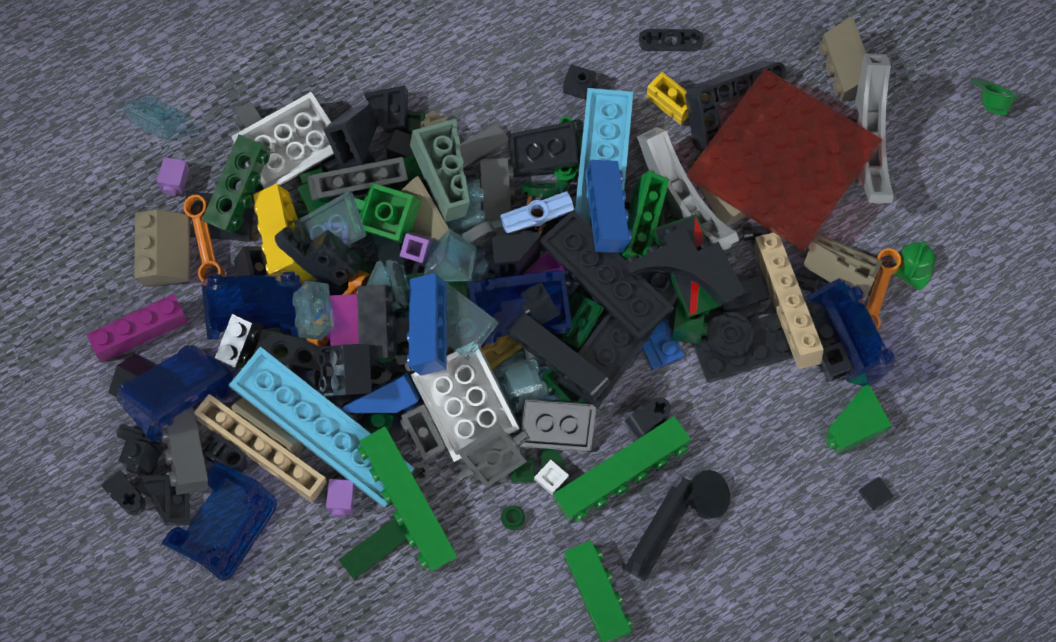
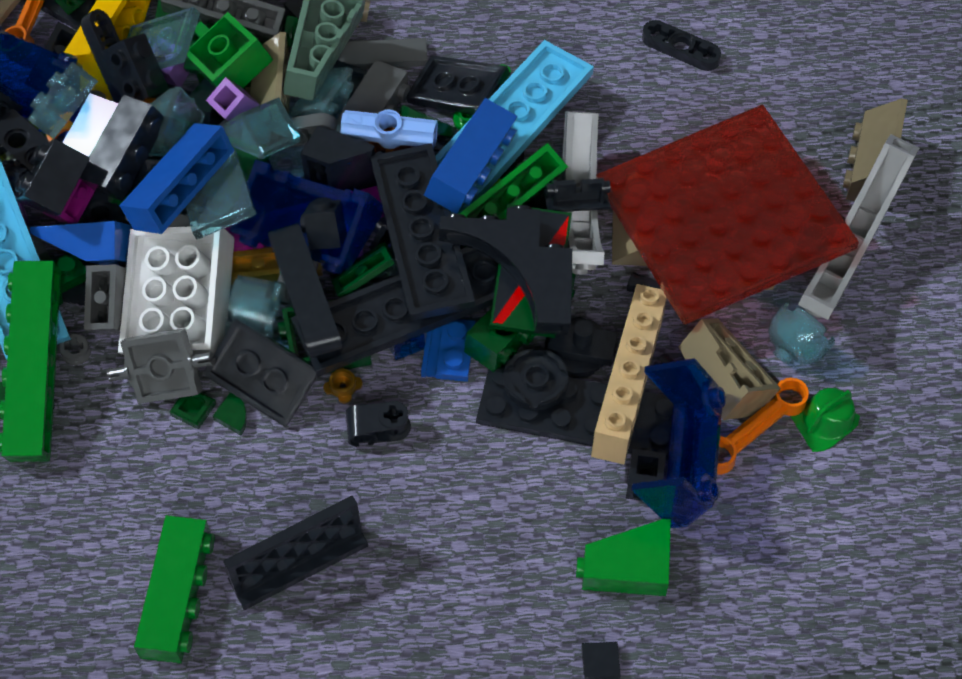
camera: 30 degrees right, 10 degrees down
(512, 517) = (143, 452): dark green plate -> none
(551, 477) = (215, 428): white tile -> none
(578, 81) = (544, 29): black brick -> none
(613, 409) = (339, 377): none -> pearl gold plate
(621, 470) = (303, 464): green brick -> none
(668, 97) = (638, 98): yellow brick -> none
(687, 197) = (566, 197): none -> black hinge
(705, 96) = (680, 109): black beam -> none
(708, 494) = (385, 546): black tile -> none
(872, 219) = (798, 336): none -> clear light blue cylinder

